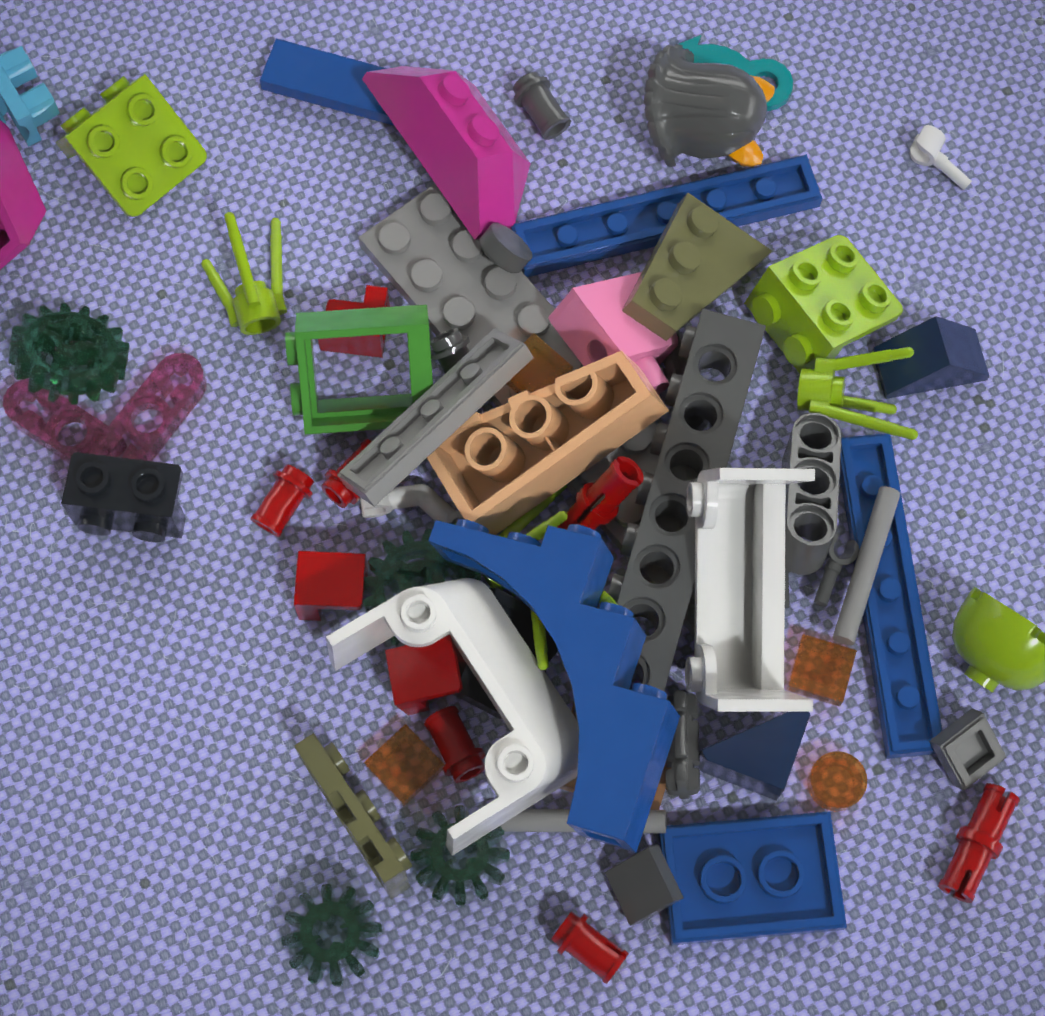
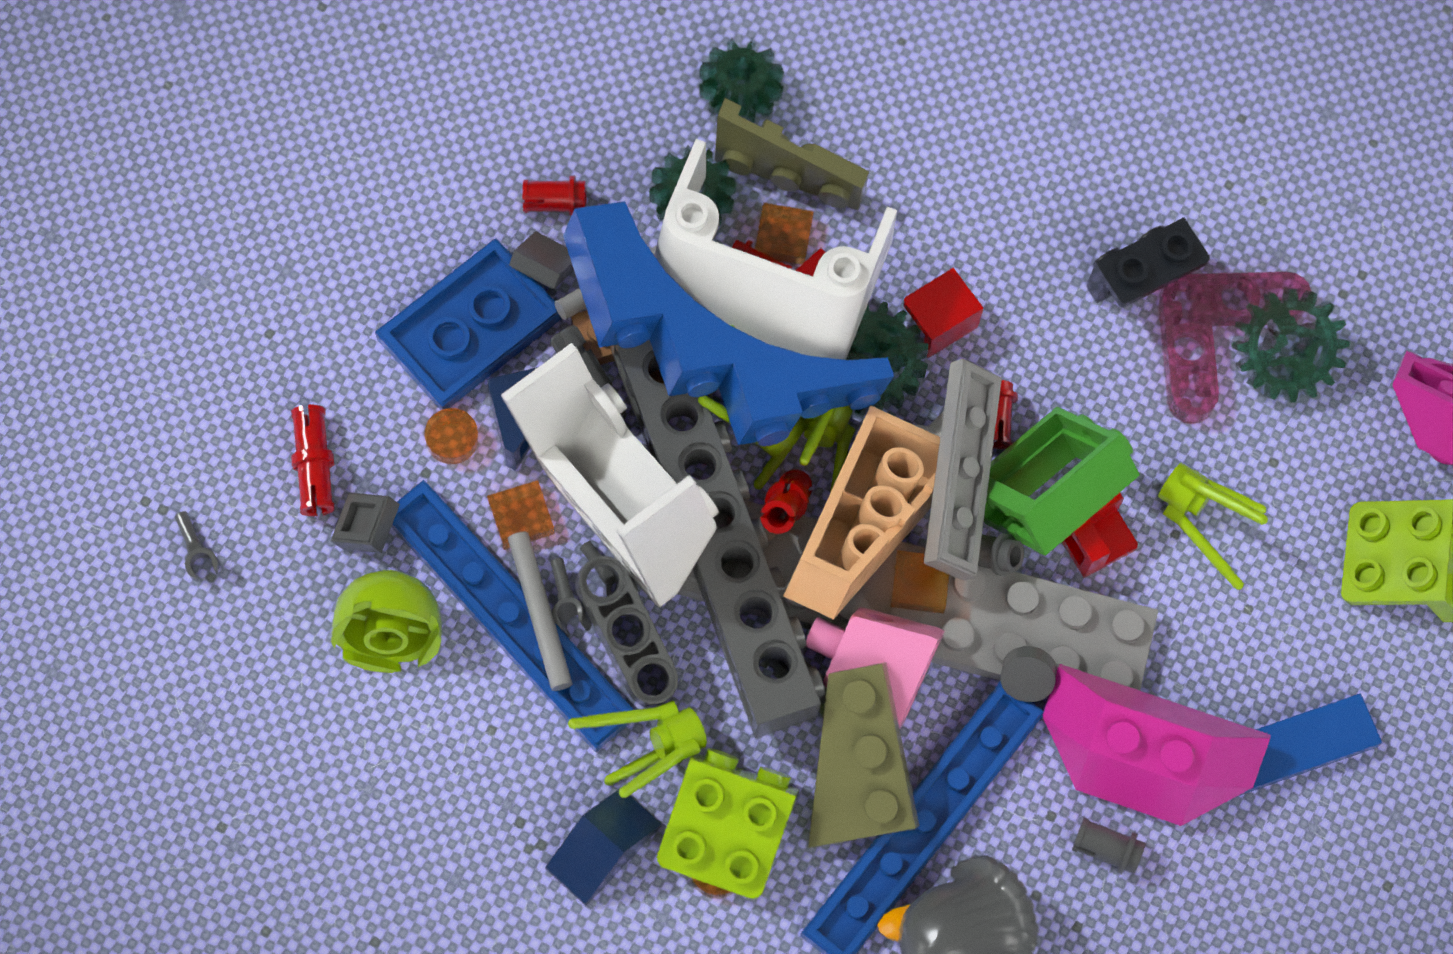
camera: 140 degrees right, 0 degrees up
(283, 499) = (1034, 367): red pin -> none

